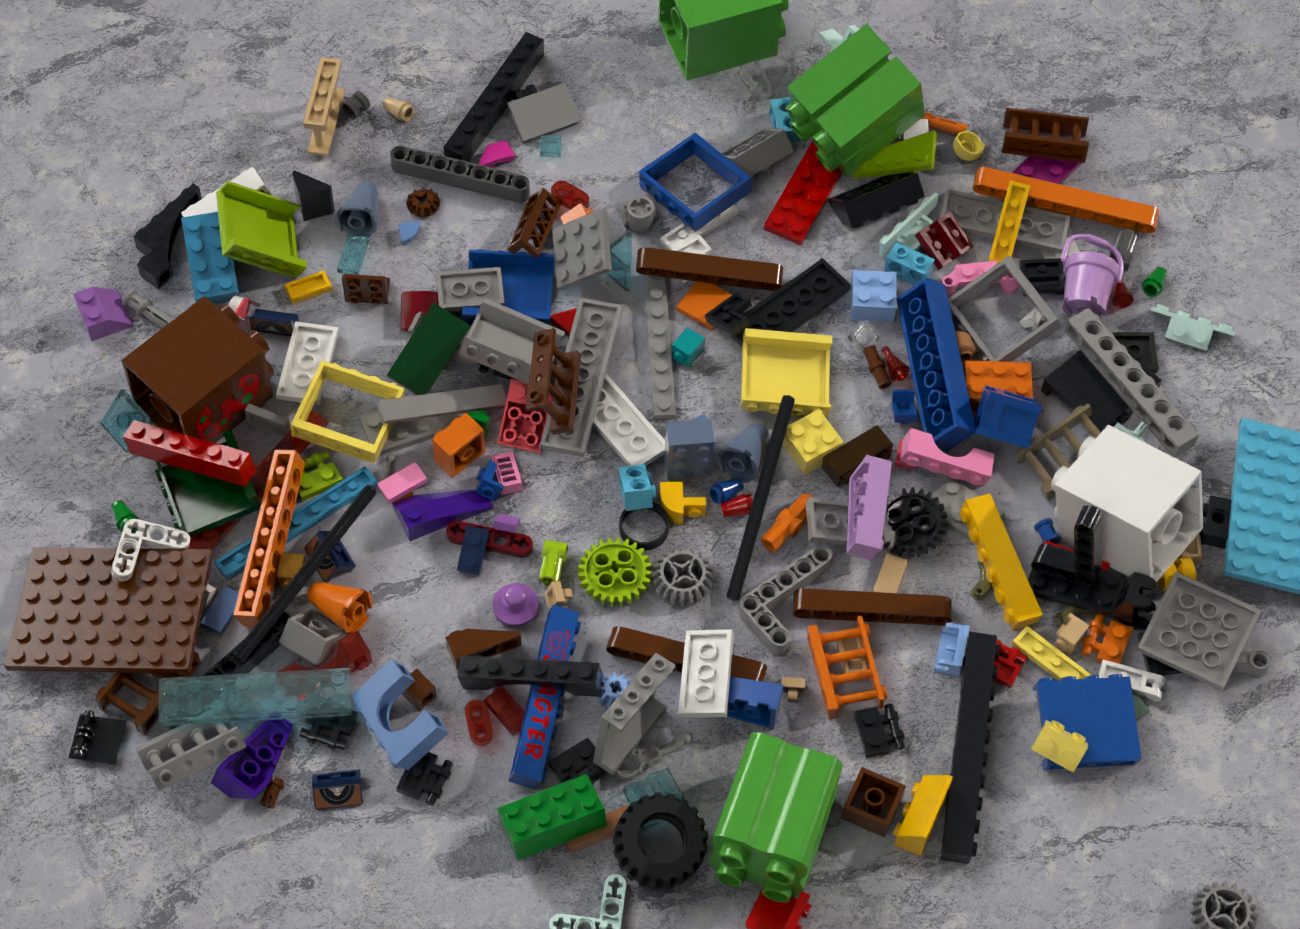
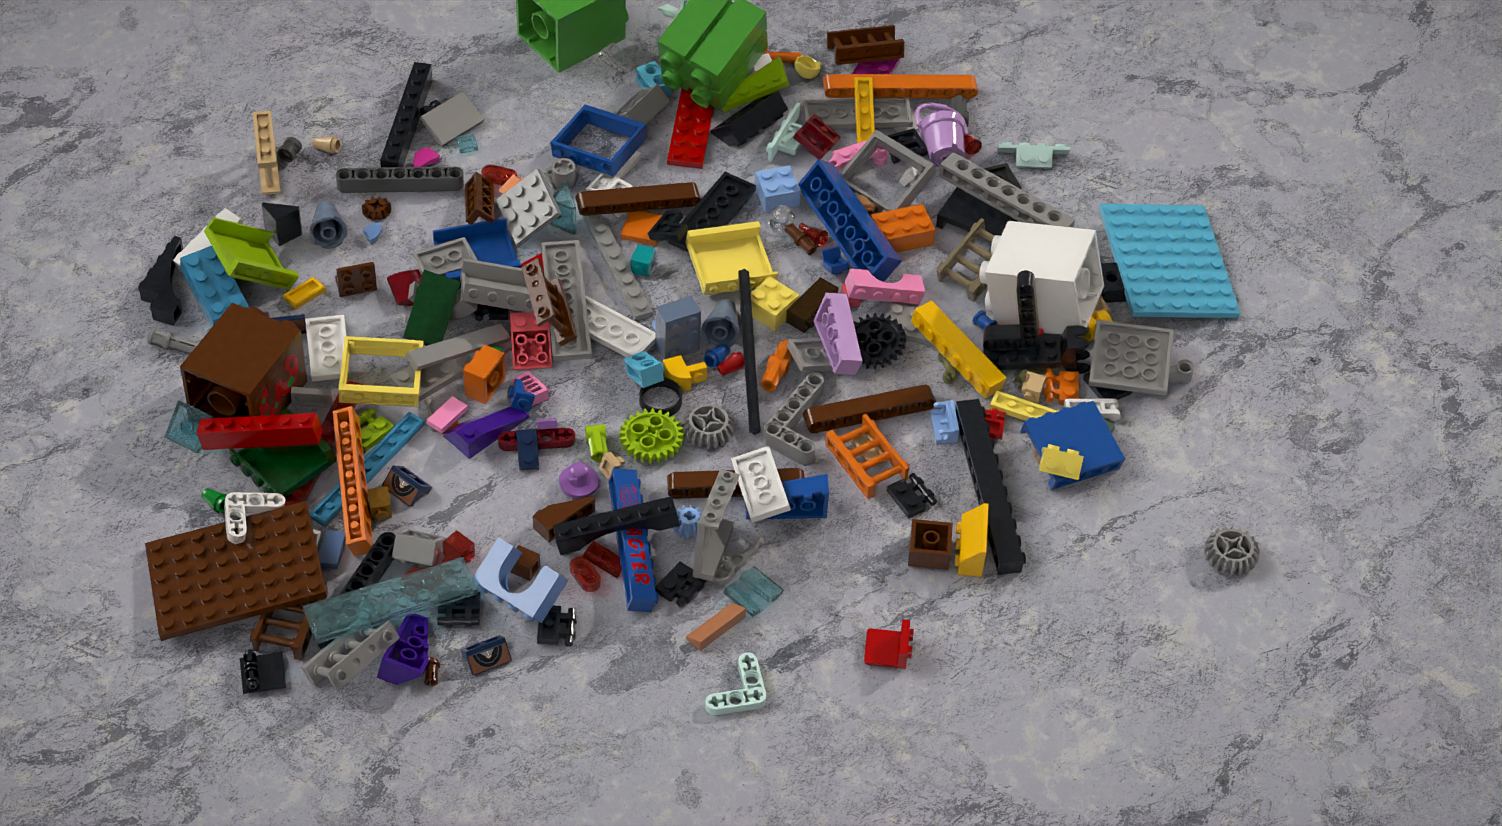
camera: 20 degrees left, 10 degrees down
(101, 312) = (130, 353): medium lavender slope -> none
(304, 574) = (394, 499): black axle -> none
(341, 604) = (433, 515): orange cone -> none
(353, 254) = (332, 259): clear light blue plate -> none
(552, 817) = (676, 623): green brick -> none
(679, 815) = (784, 594): black tyre -> none
(775, 816) = (861, 568): bright green brick -> none
(793, 686) = (833, 479): tan tile -> none
(890, 574) = (873, 381): tan tile -> none
(908, 264) = (798, 158): medium azure brick -> none
(1006, 416) = (921, 243): blue container -> none
(1154, 282) = (992, 129): green cone -> none

